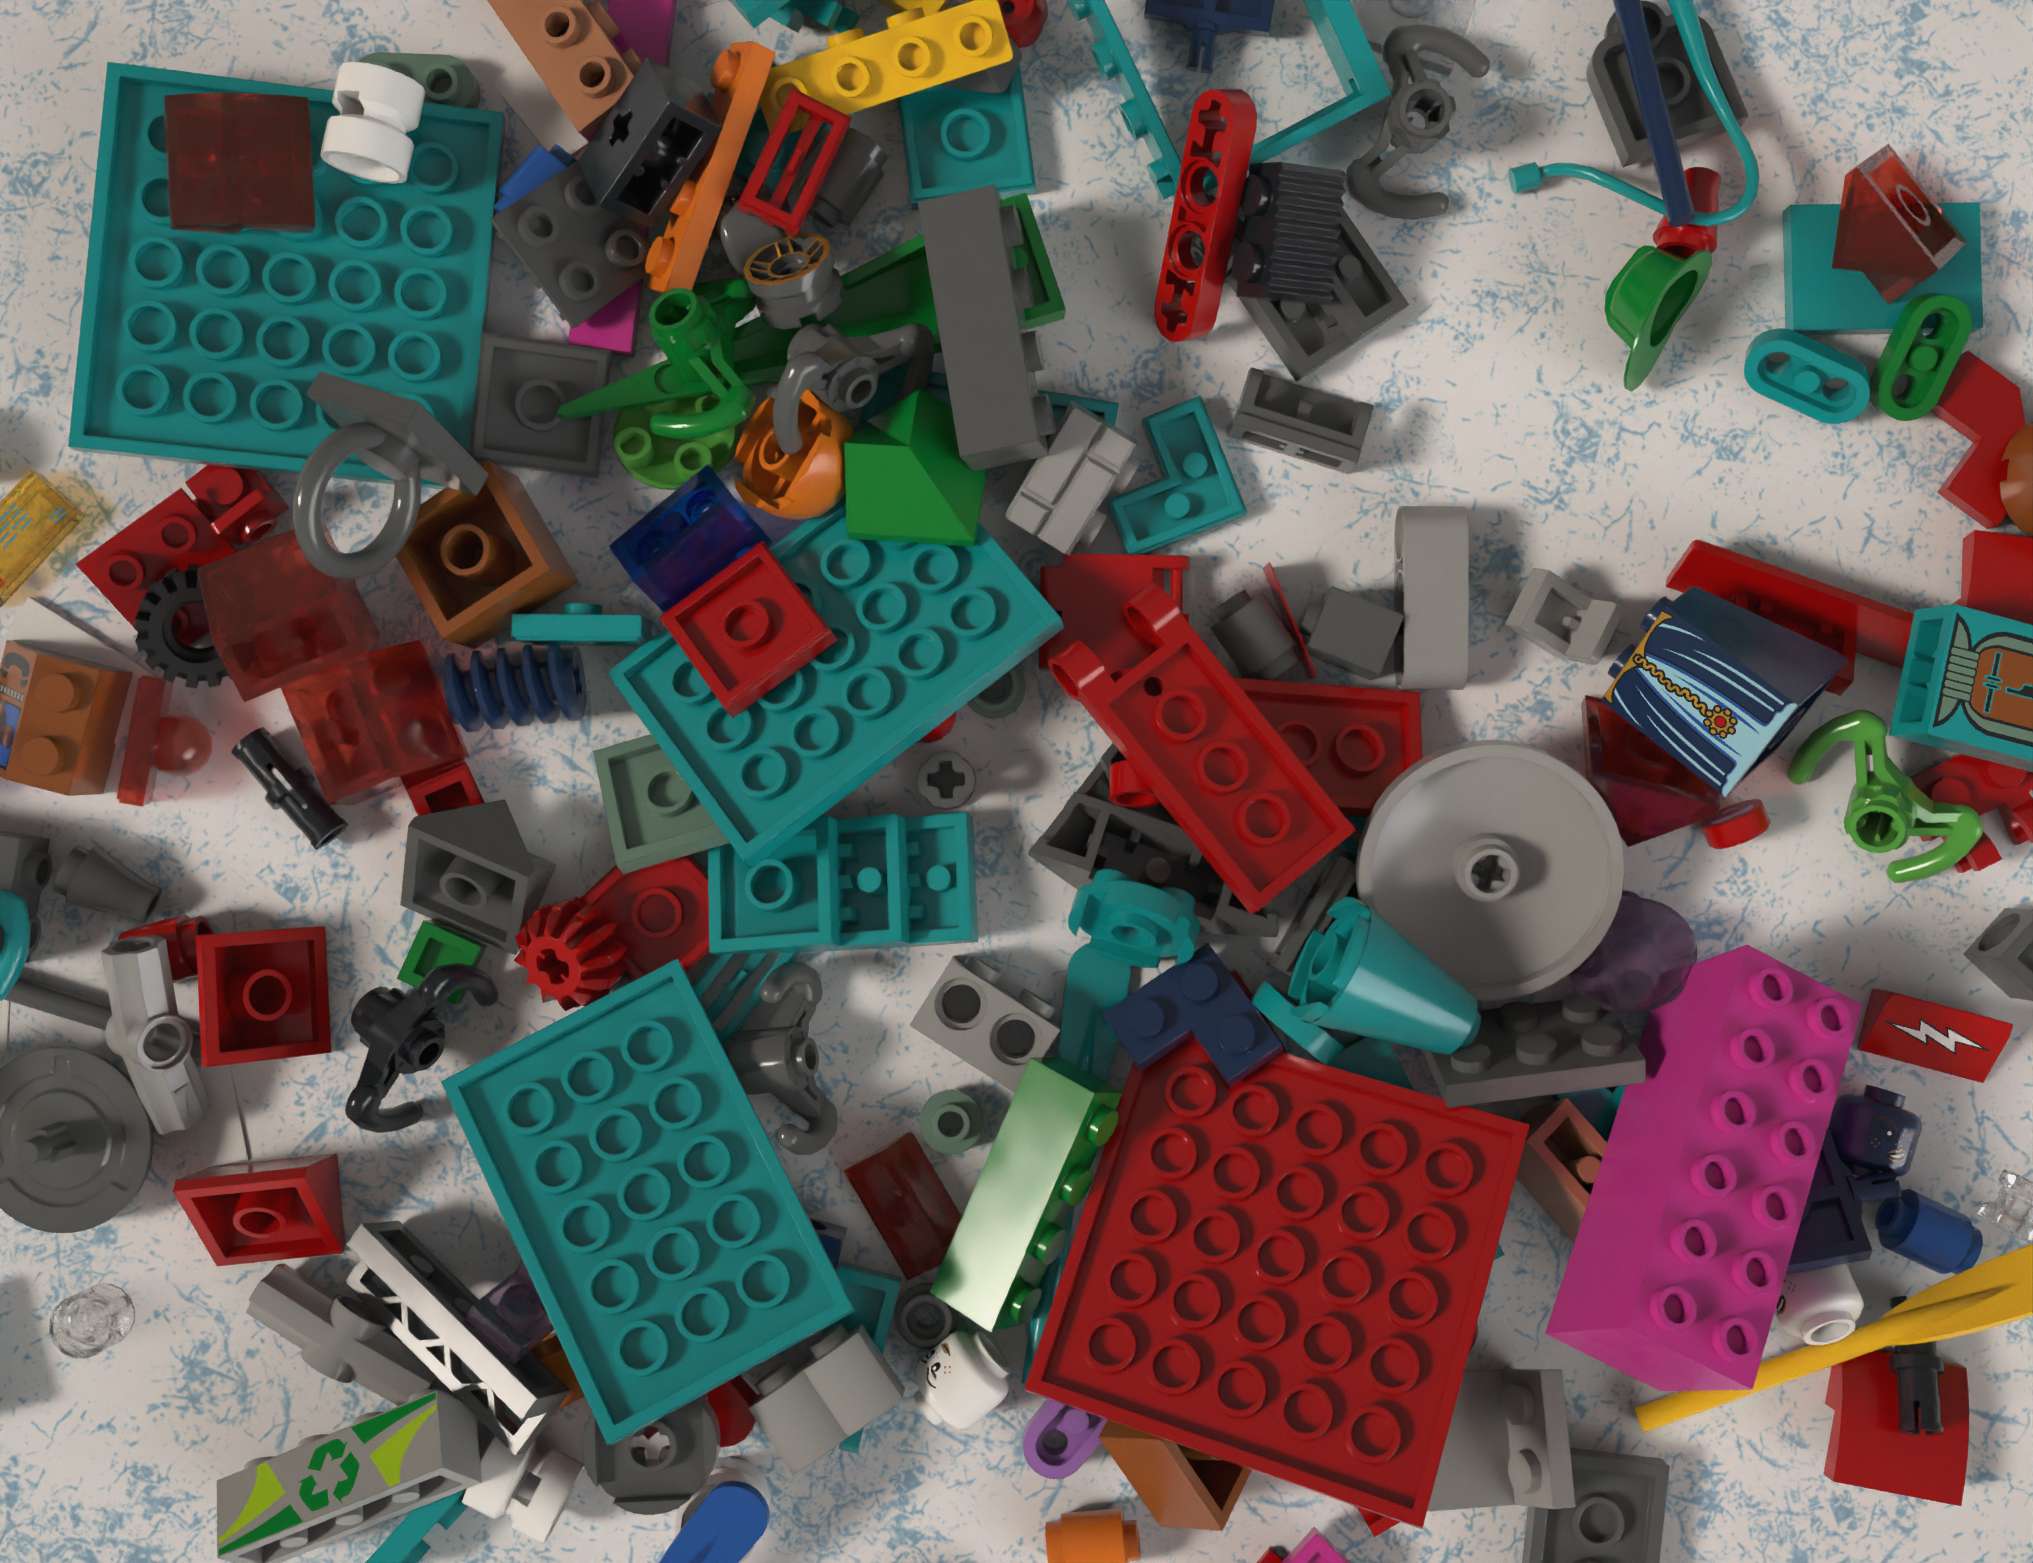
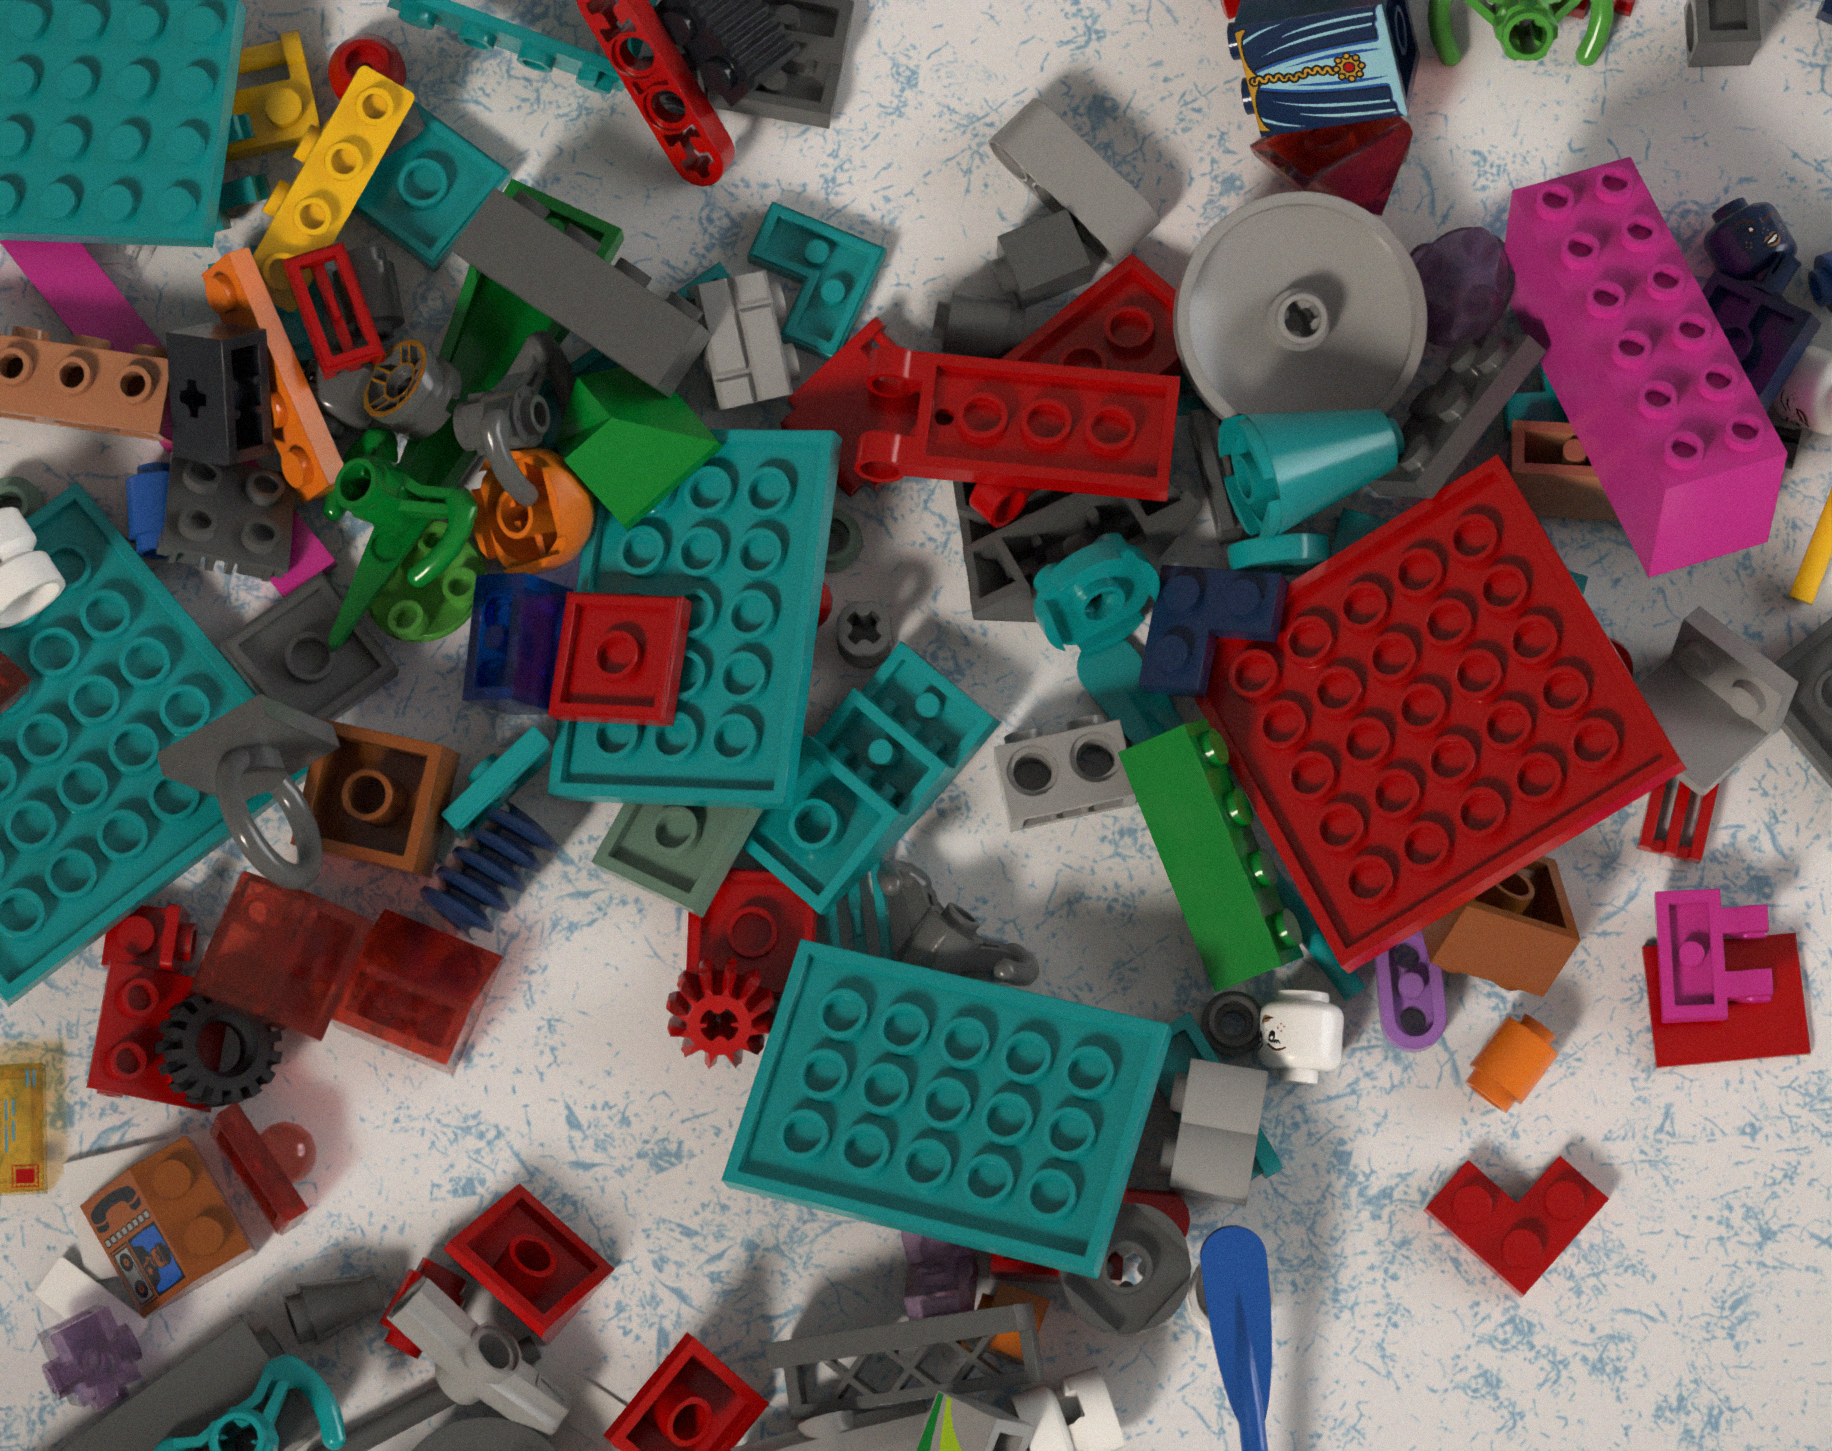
camera: 45 degrees left, 10 degrees down
(261, 757) = (396, 1104): black pin -> none
(405, 1039) = (662, 1186): black piece -> none
(436, 947) = (630, 1122): green tile -> none
(444, 790) = (522, 1003): red slope -> none
(474, 873) = (594, 1029): dark grey slope -> none
(537, 107) = (92, 456): white sticker -> none
(906, 1204) = (1139, 963): clear red slope -> none
(957, 1102) = (1105, 889): sand green plate -> none
(1289, 621) = (983, 289): red sticker -> none
(1300, 422) = (860, 152): dark grey hinge -> none
(1564, 618) = (1179, 107): light grey bracket -> none
(1736, 824) = (1440, 130): red tile -> none
(1932, 1035) = (1722, 140): red slope -> none

